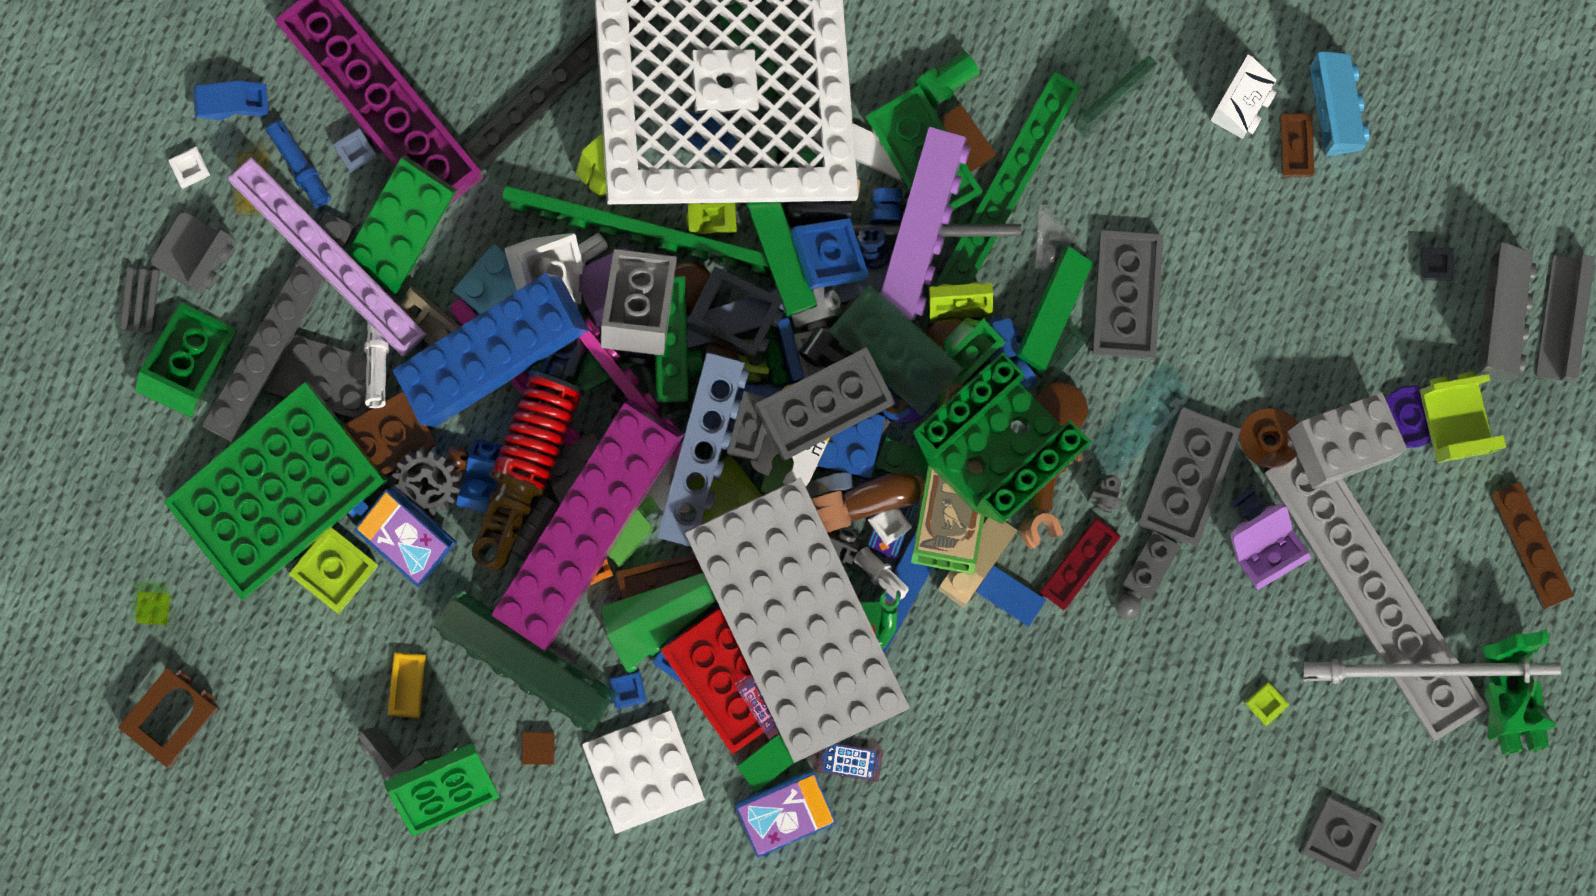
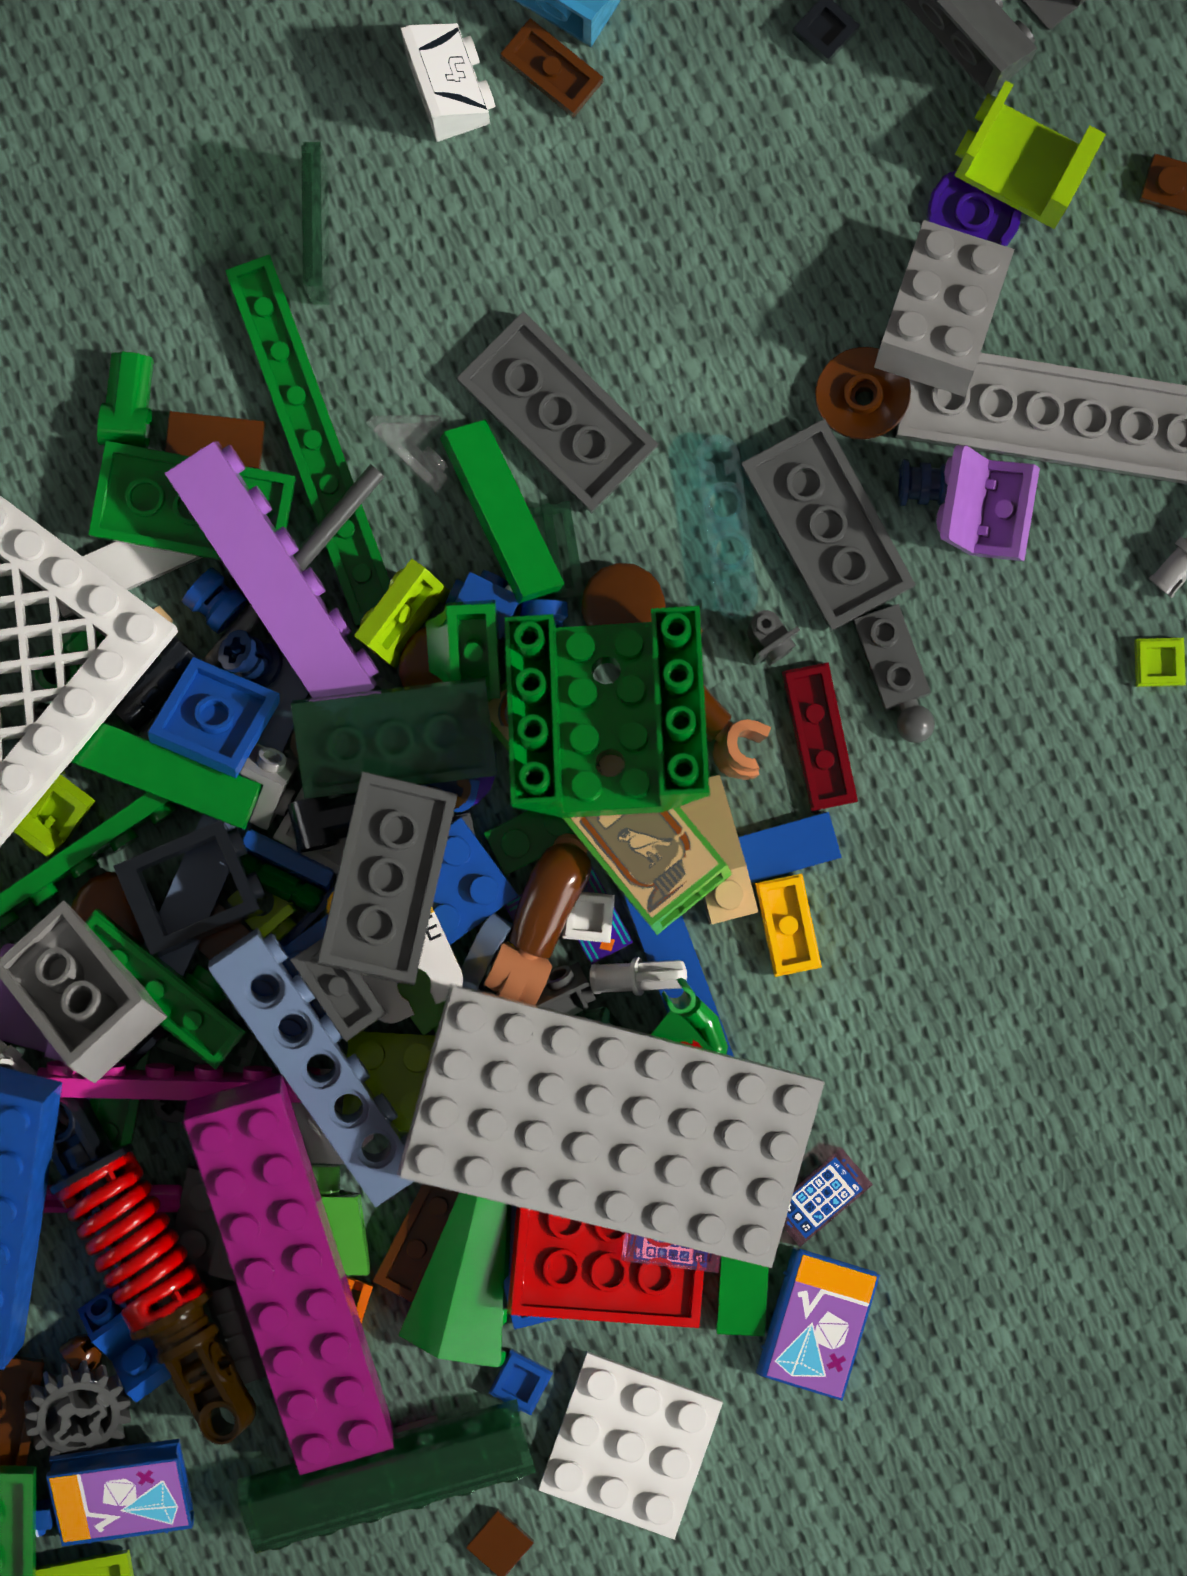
camera: 50 degrees left, 5 degrees up
(971, 628) = (788, 925): none -> yellow plate

